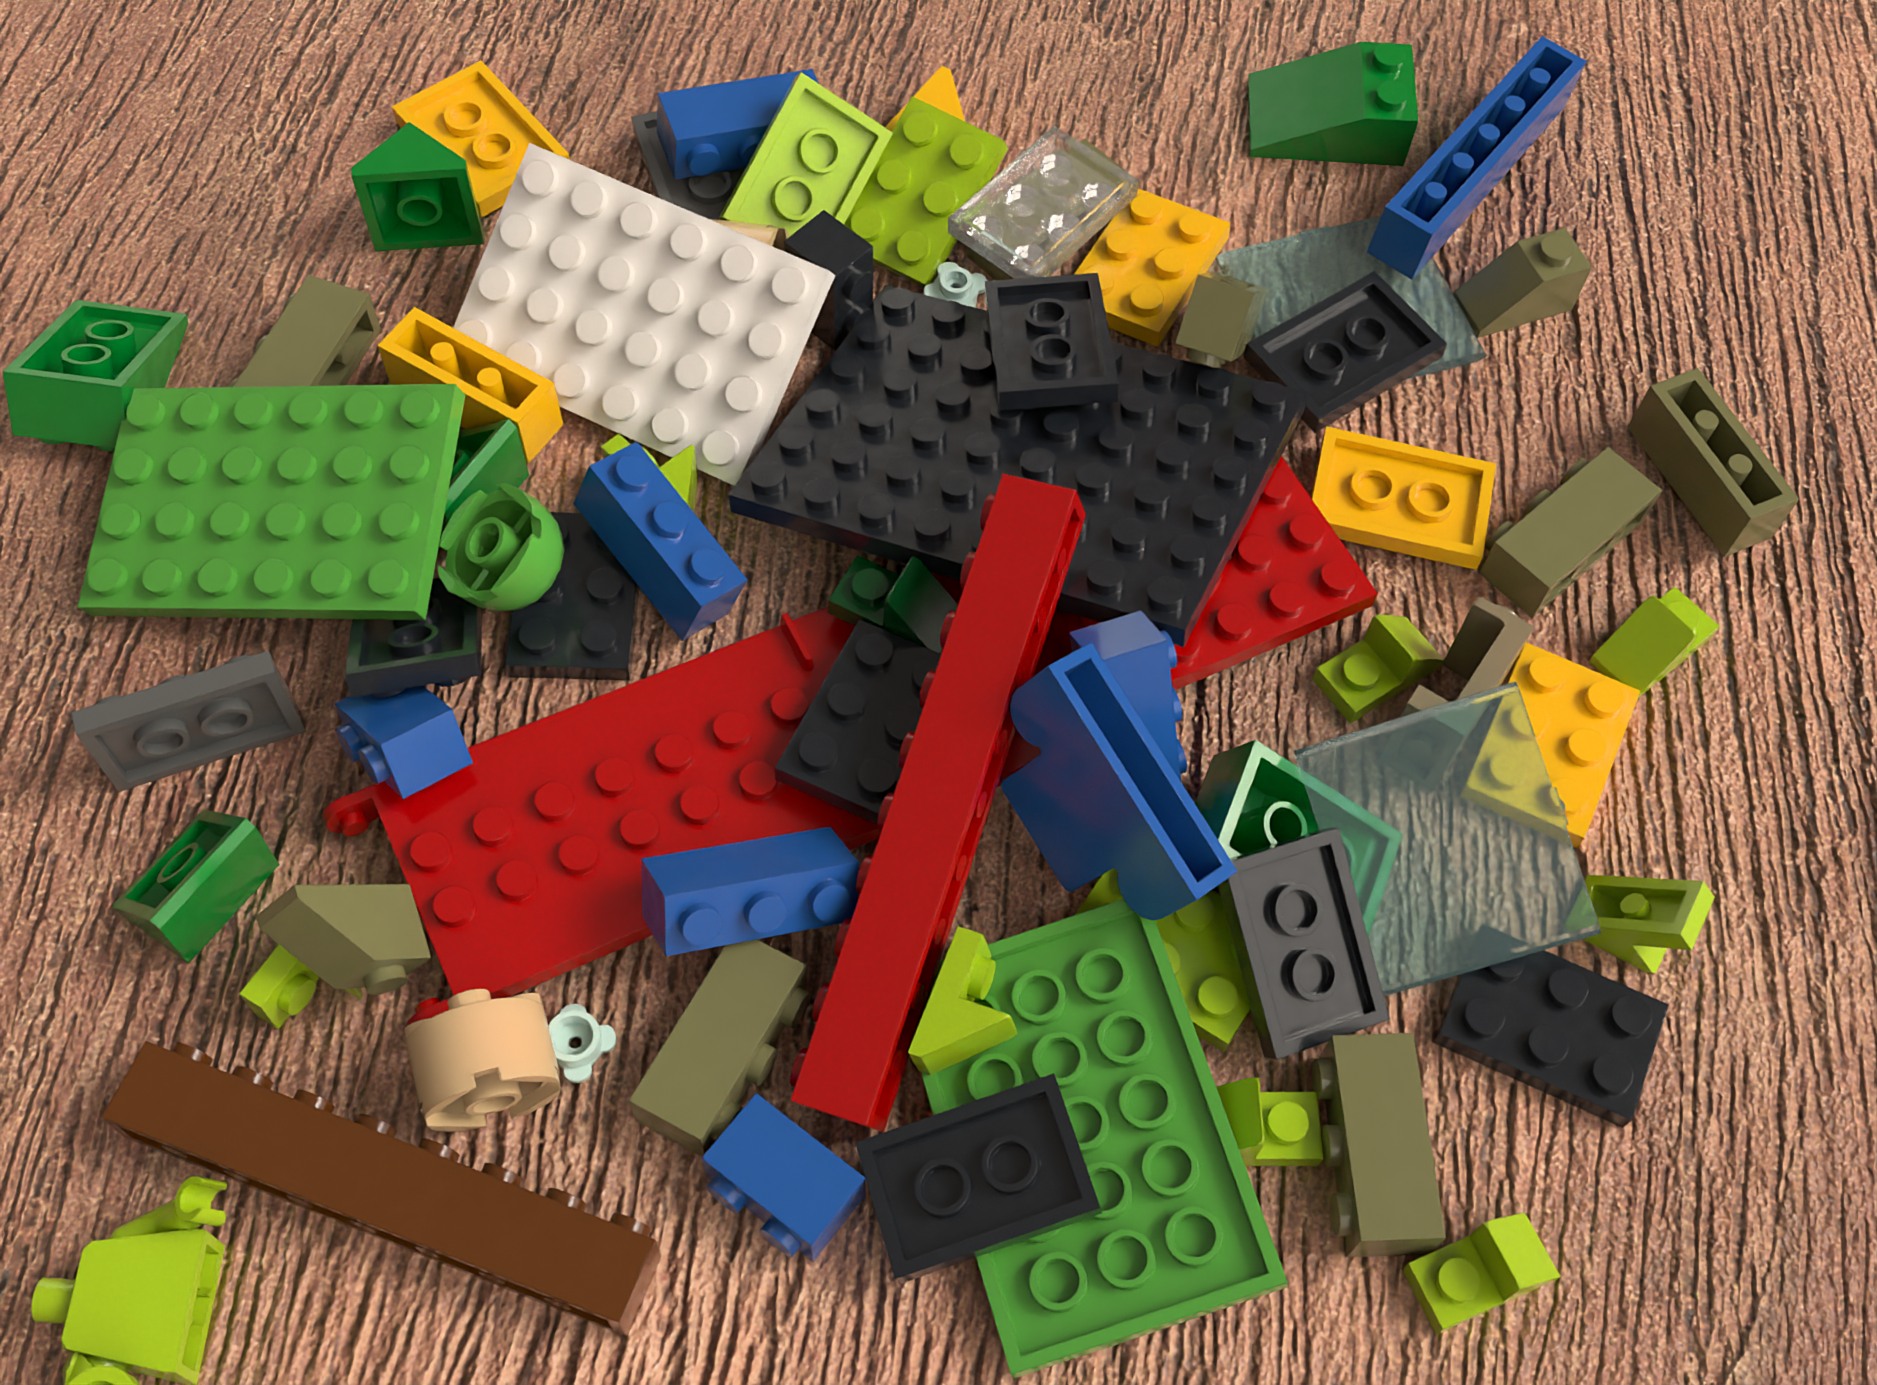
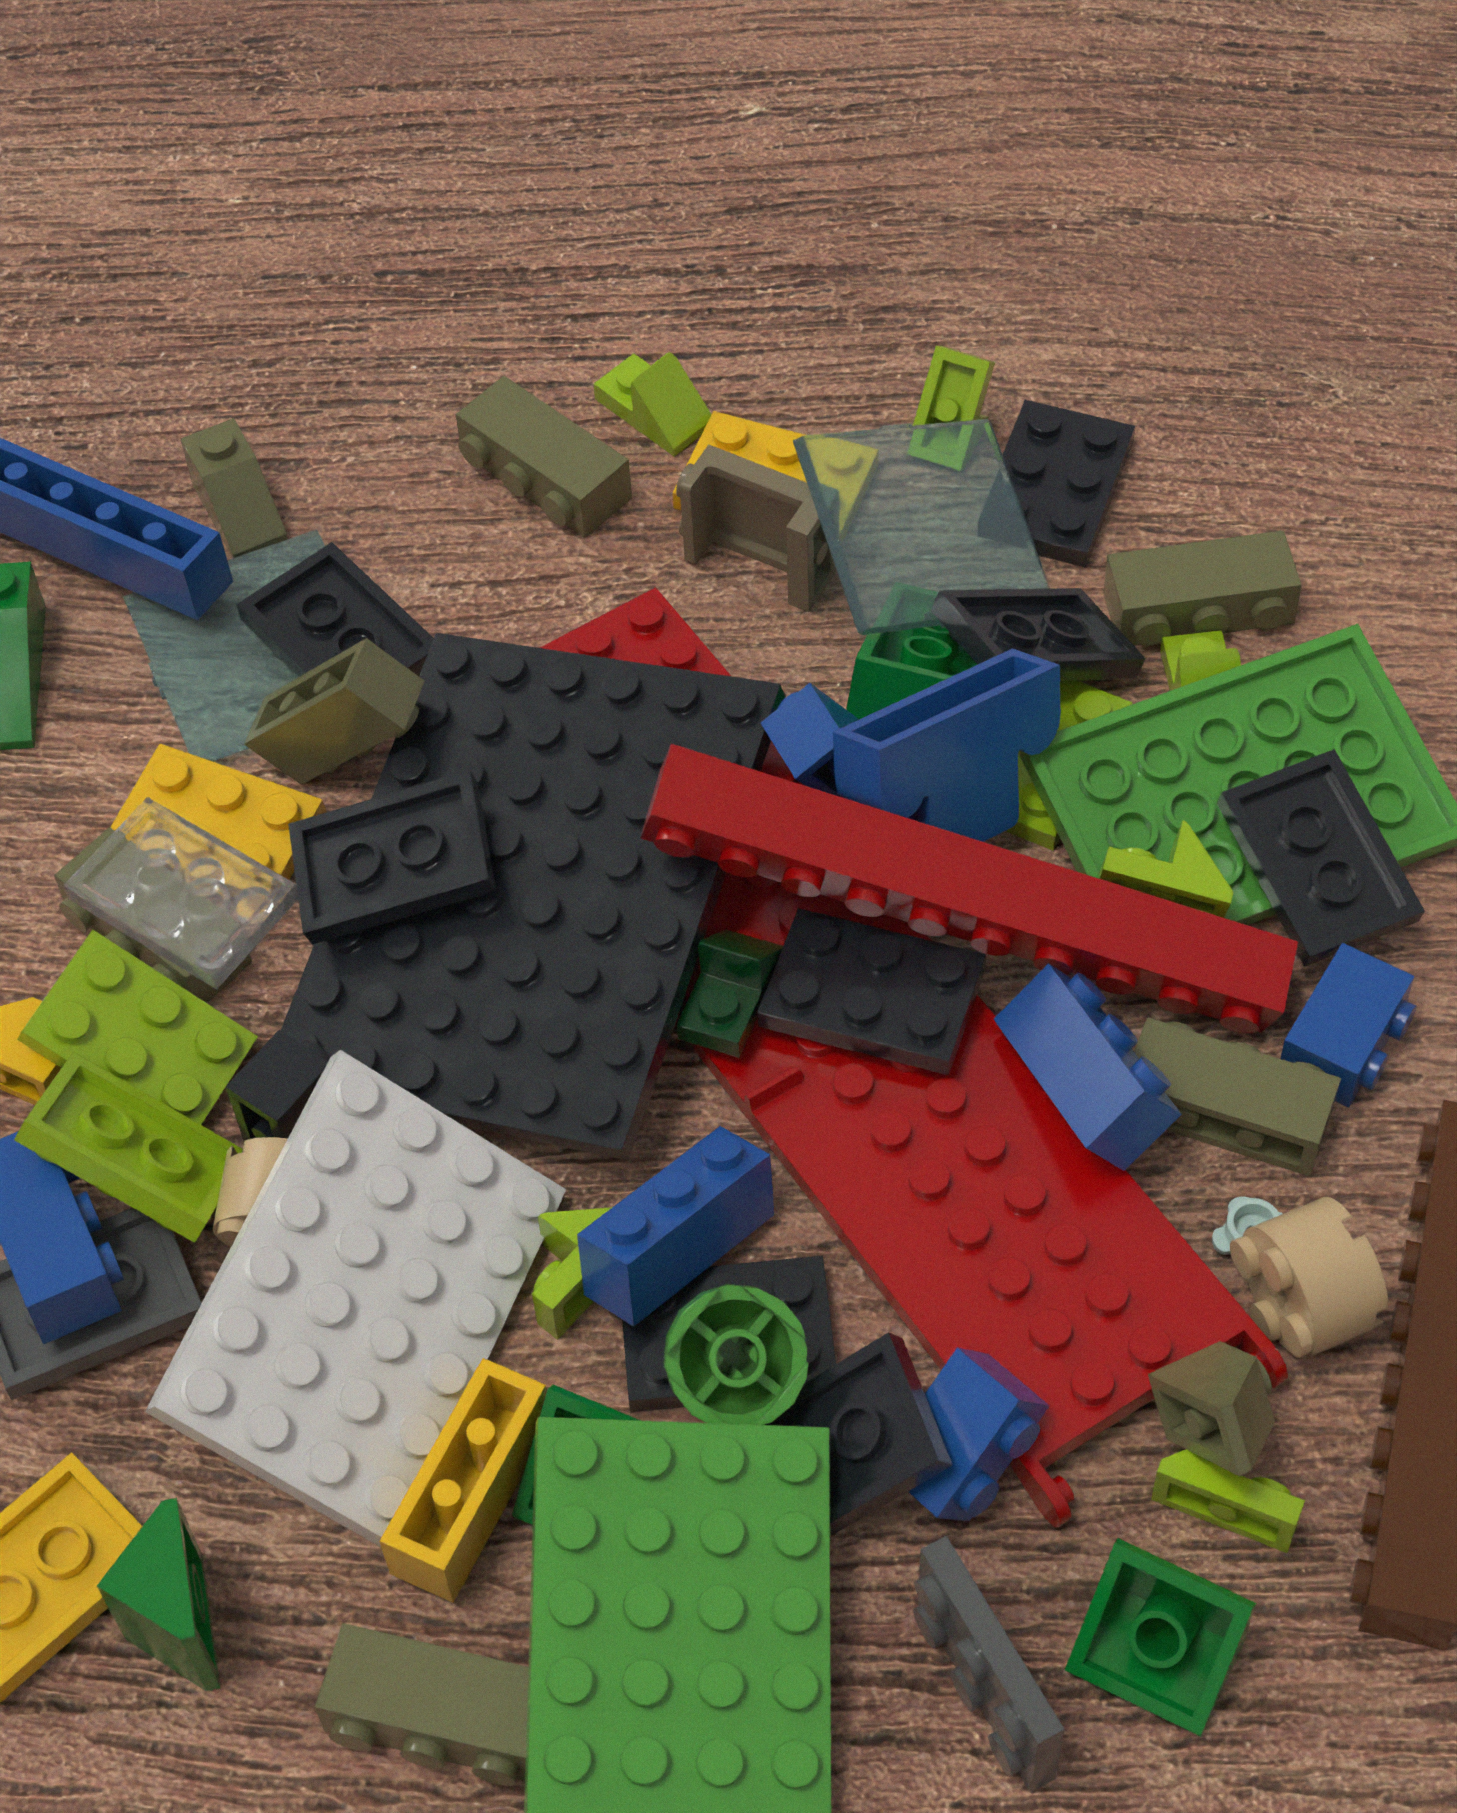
camera: 90 degrees left, 5 degrees down
(956, 284) = (265, 1020): light aqua plate -> none
(1377, 666) = (715, 608): lime slope -> none
(1404, 497) = (516, 578): yellow plate -> none
(1480, 1272) = (1288, 507): lime slope -> none
(1712, 462) = (458, 343): olive brick -> none

